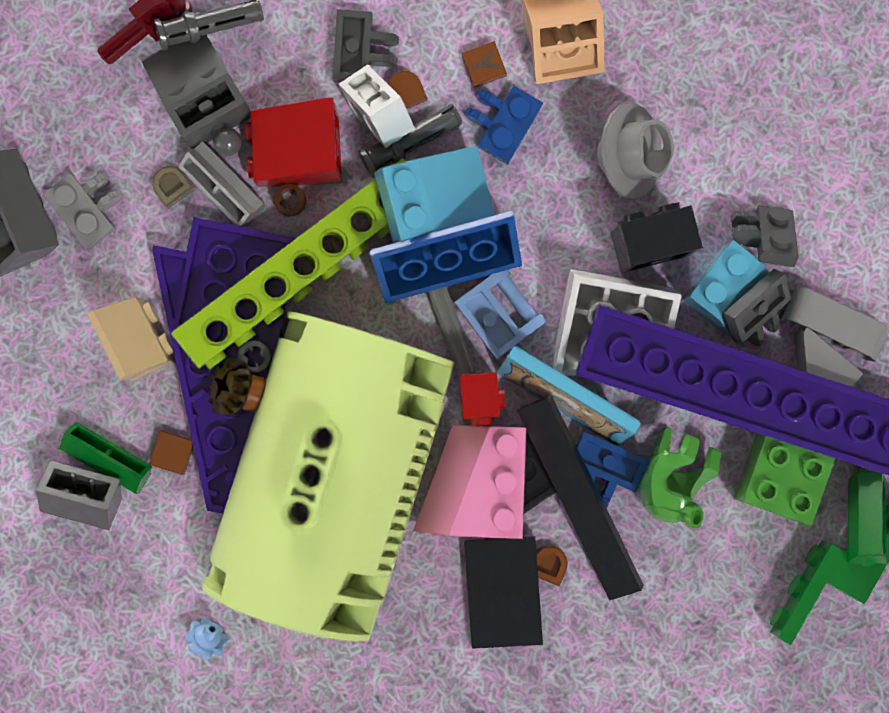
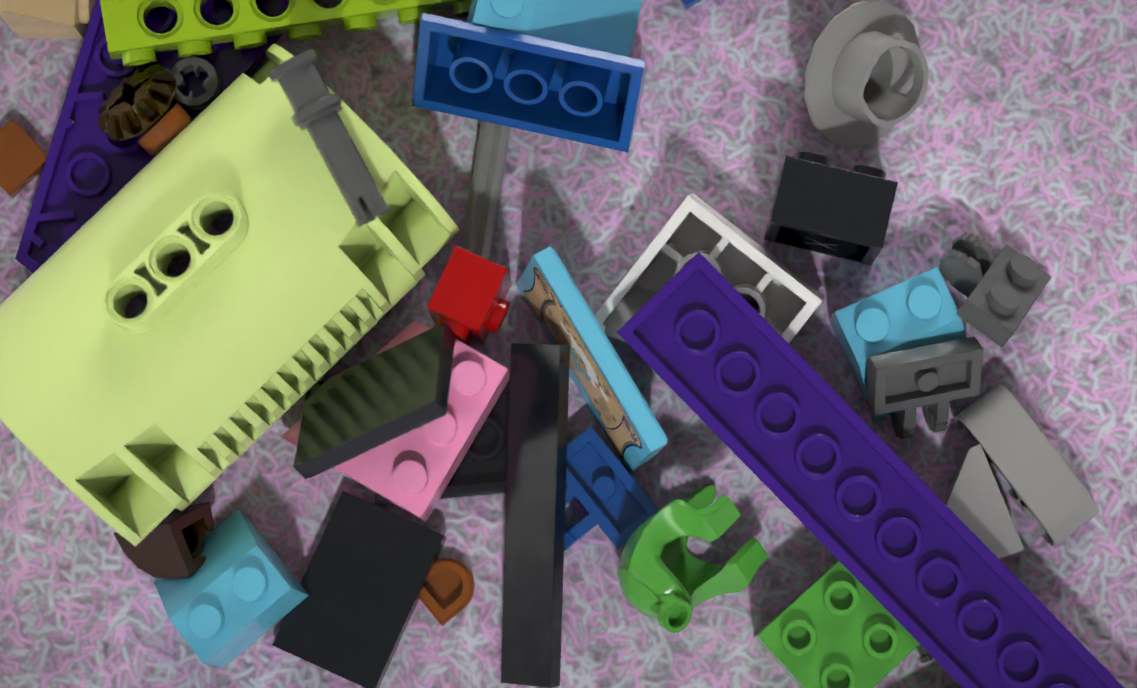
camera: 35 degrees right, 5 degrees down
(345, 344) = (318, 113): none -> dark grey pin
(390, 622) = (174, 545): none -> dark brown brick
(430, 633) = (231, 595): none -> medium azure slope
(463, 487) = (375, 401): none -> black tile
(491, 319) = (546, 202): light blue plate -> none

